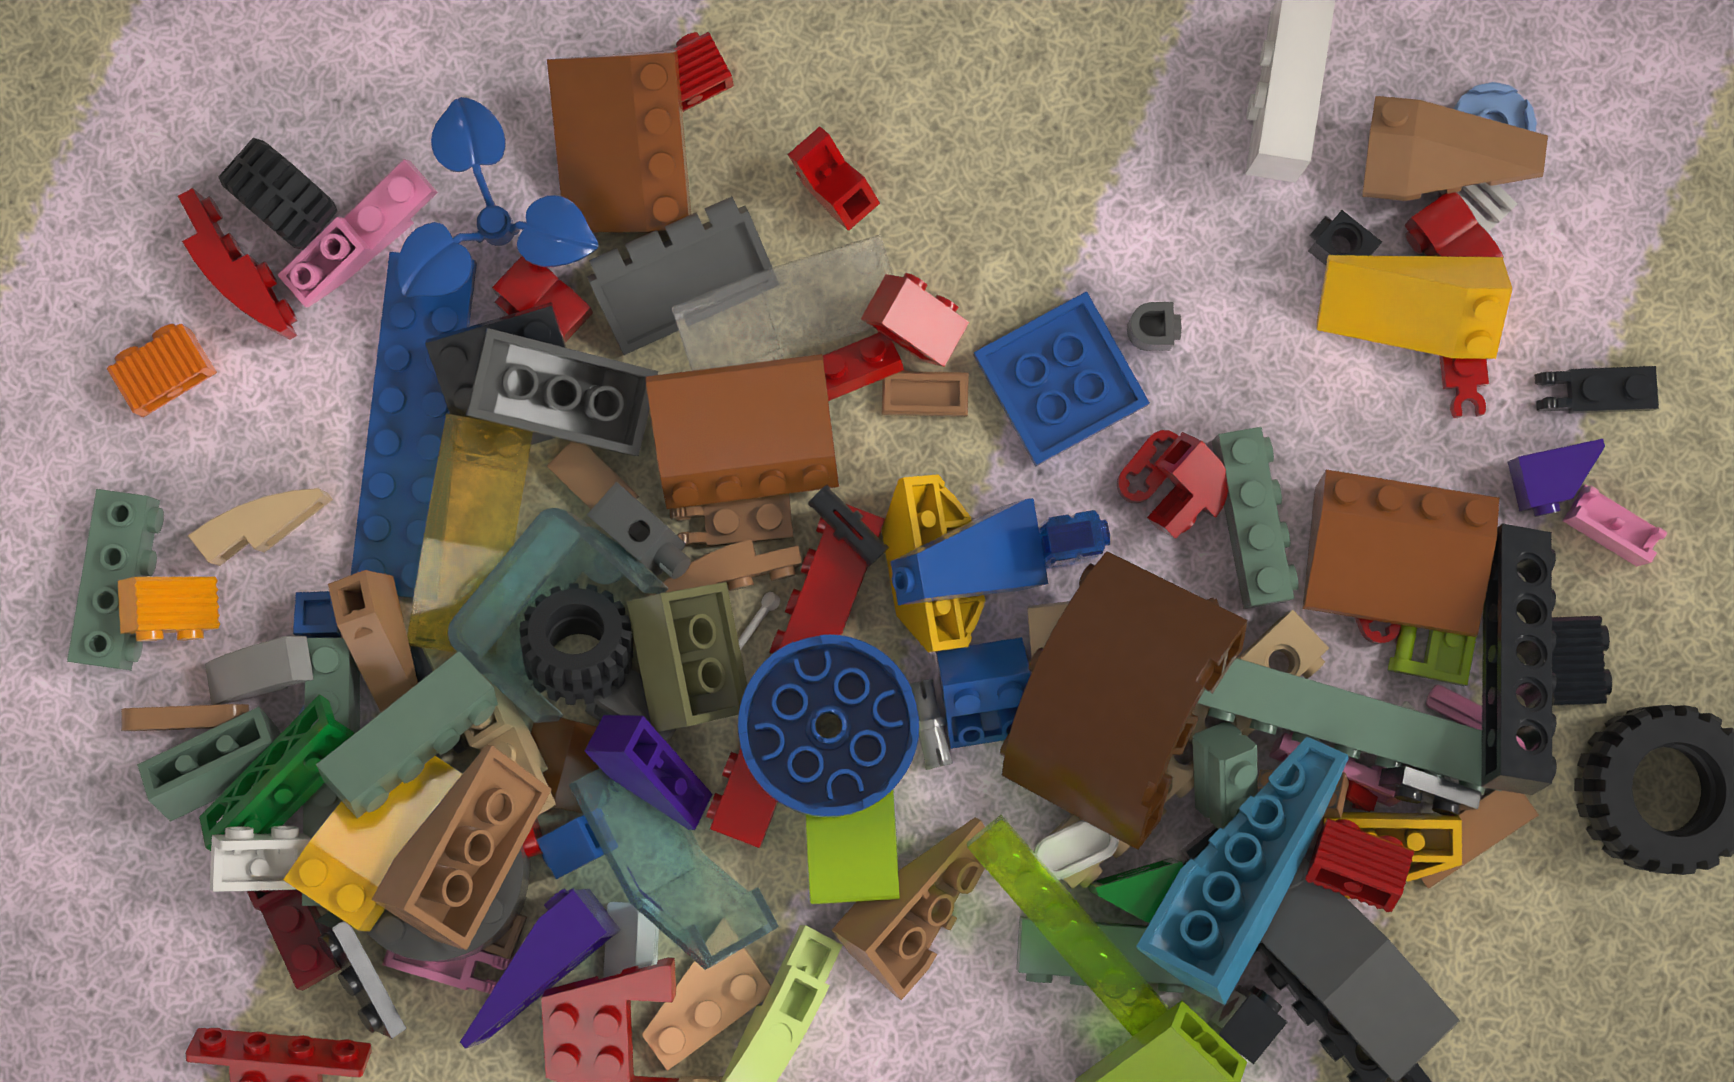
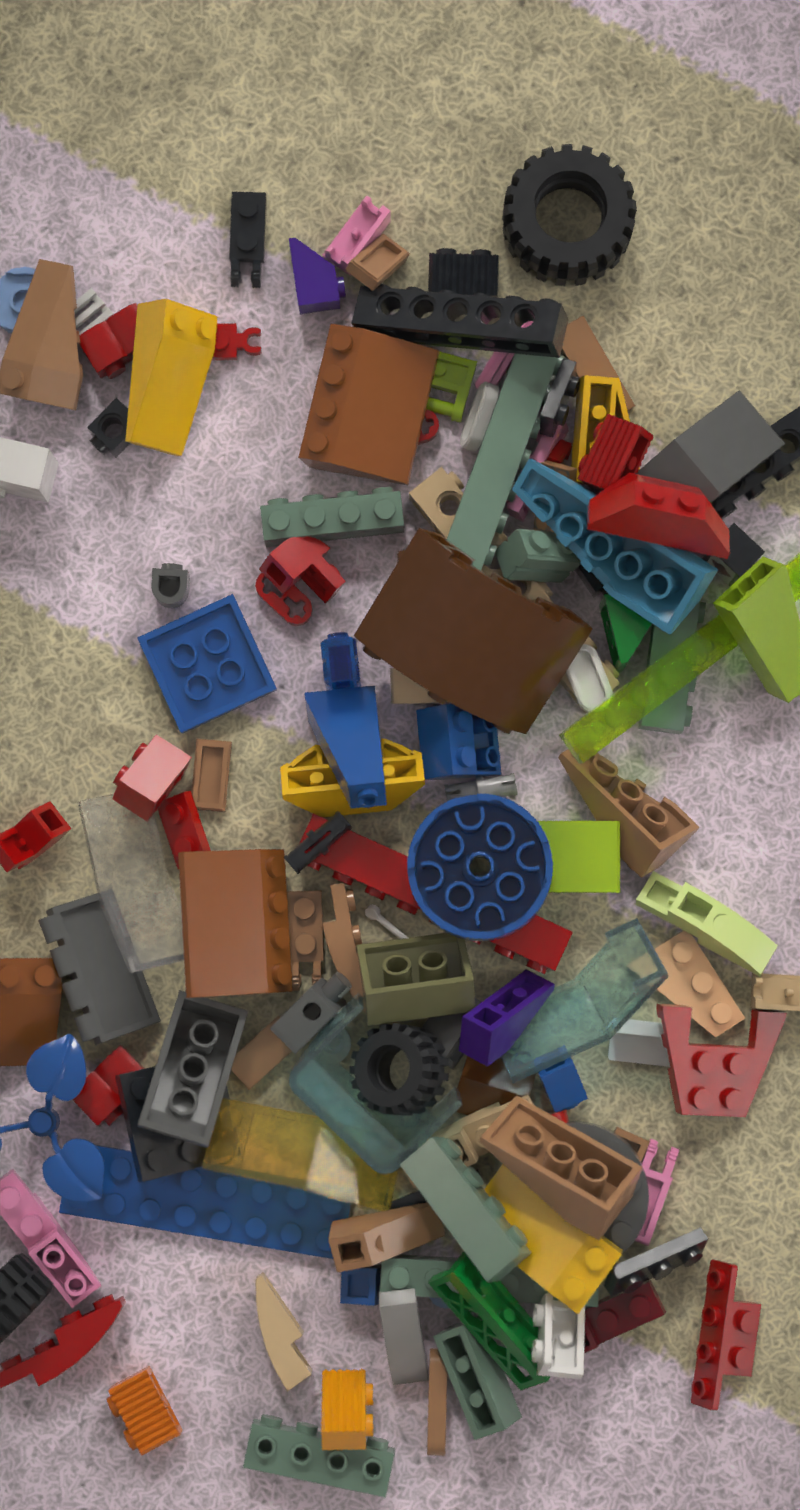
camera: 85 degrees left, 0 degrees up
(553, 948) = (640, 1099): dark purple slope -> none
(1288, 925) = (659, 514): none -> red wedge
(1397, 692) = (479, 416): none -> white tile
(1583, 552) = (377, 261): none -> medium nougat tile

